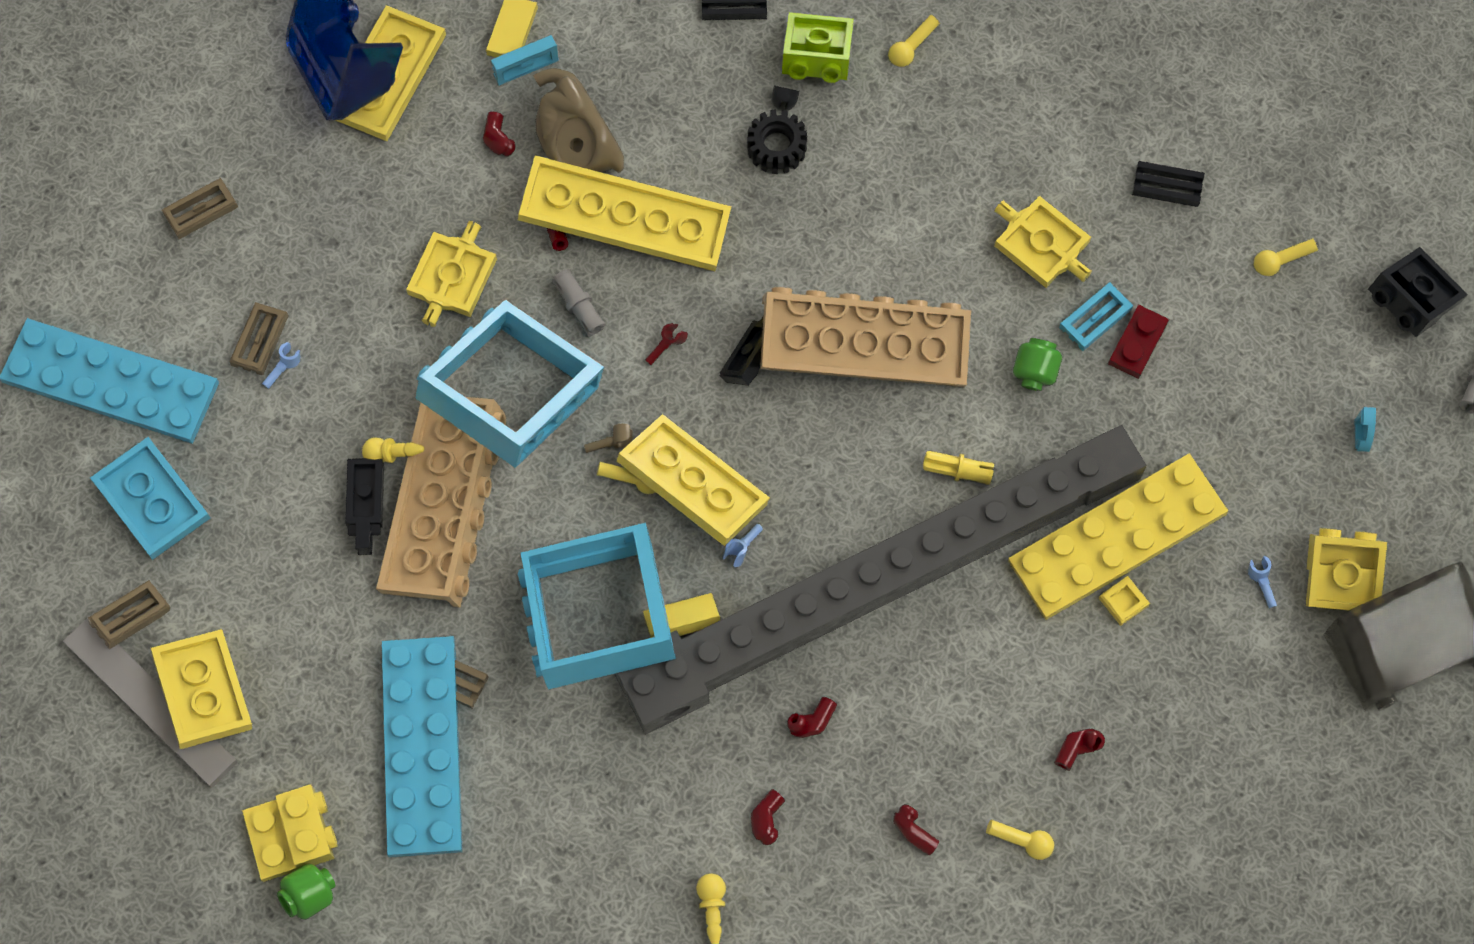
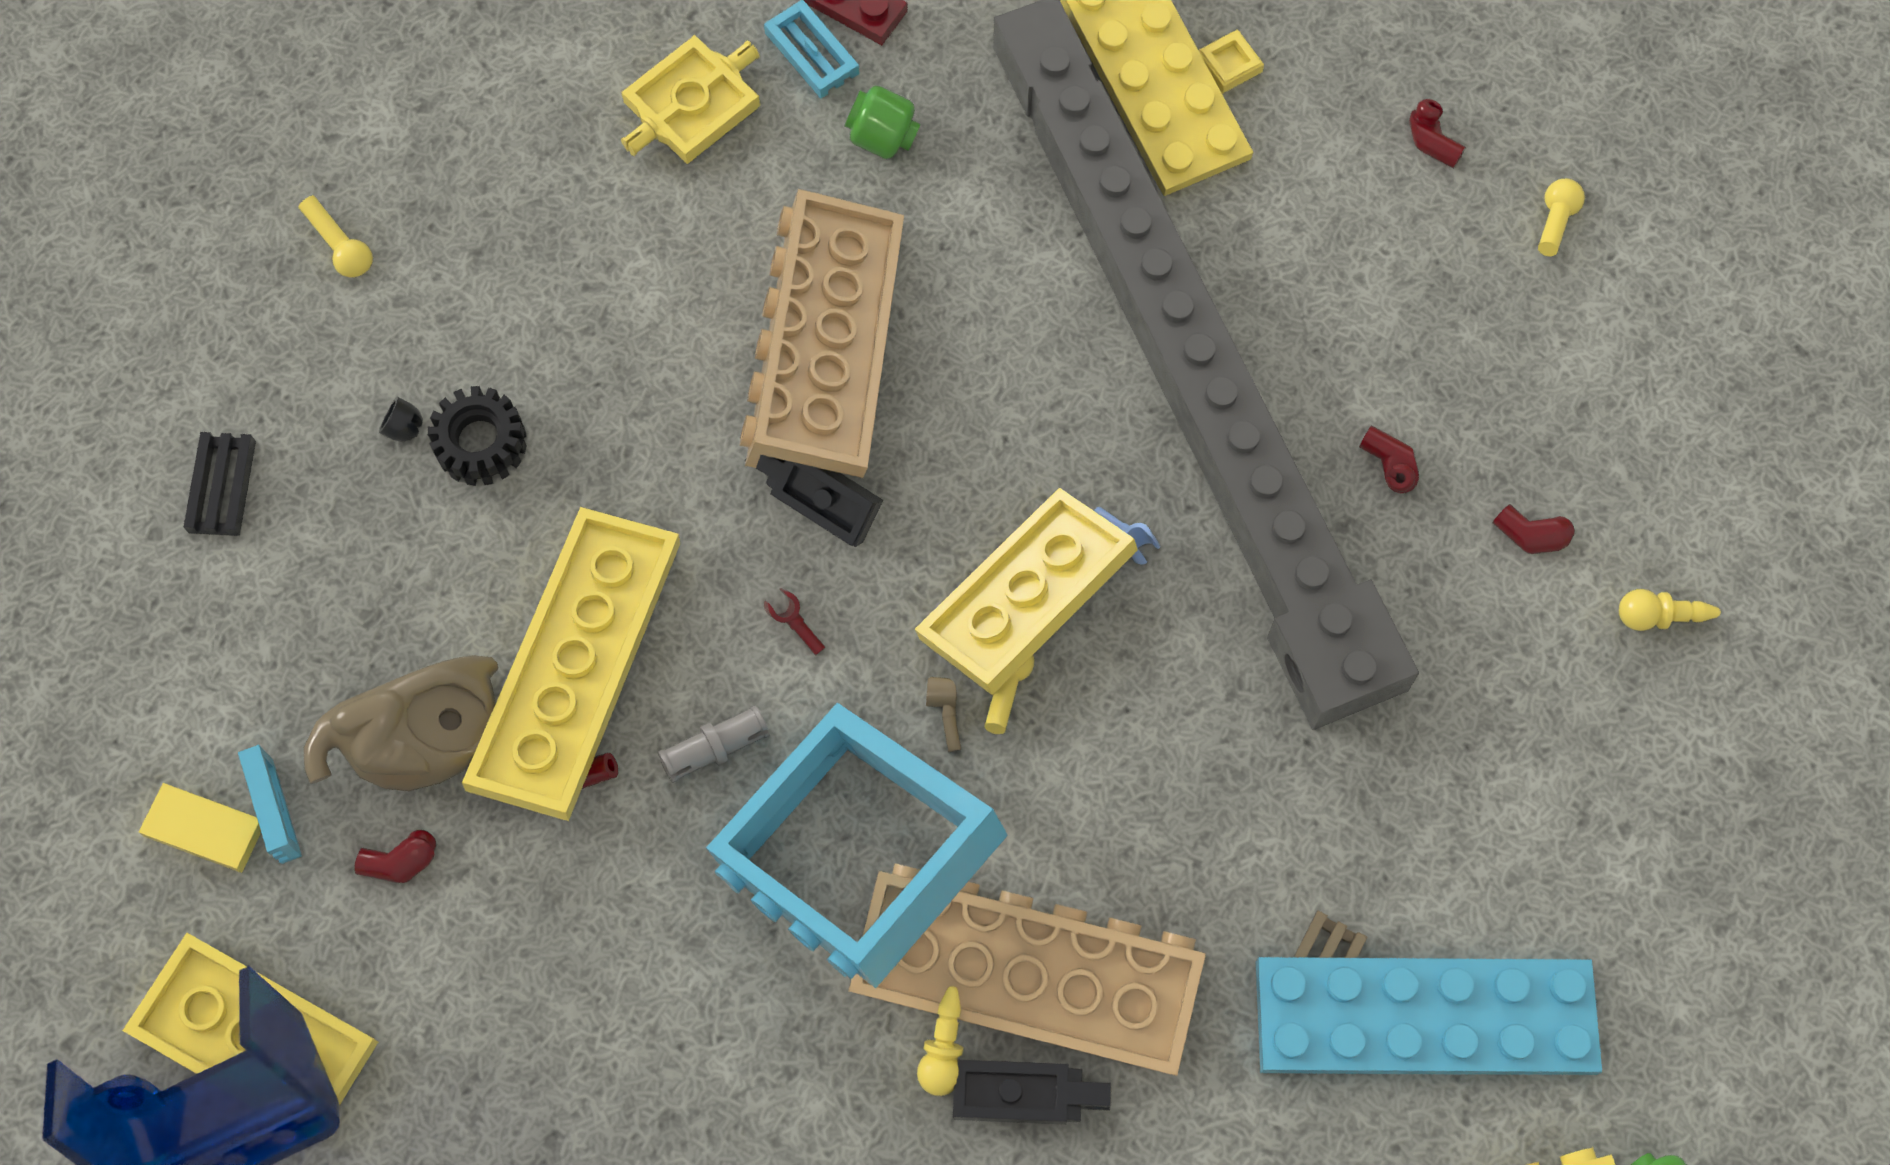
camera: 85 degrees left, 0 degrees up
(451, 274) = (640, 939): light yellow plate -> none
(581, 554) = (1213, 645): medium azure window -> none
(688, 615) = (1238, 623): light yellow tile -> none
(817, 47) = (325, 363): lime plate -> none
(912, 832) = (1555, 345): dark red arm -> none
(958, 467) = (1027, 238): light yellow axle -> none

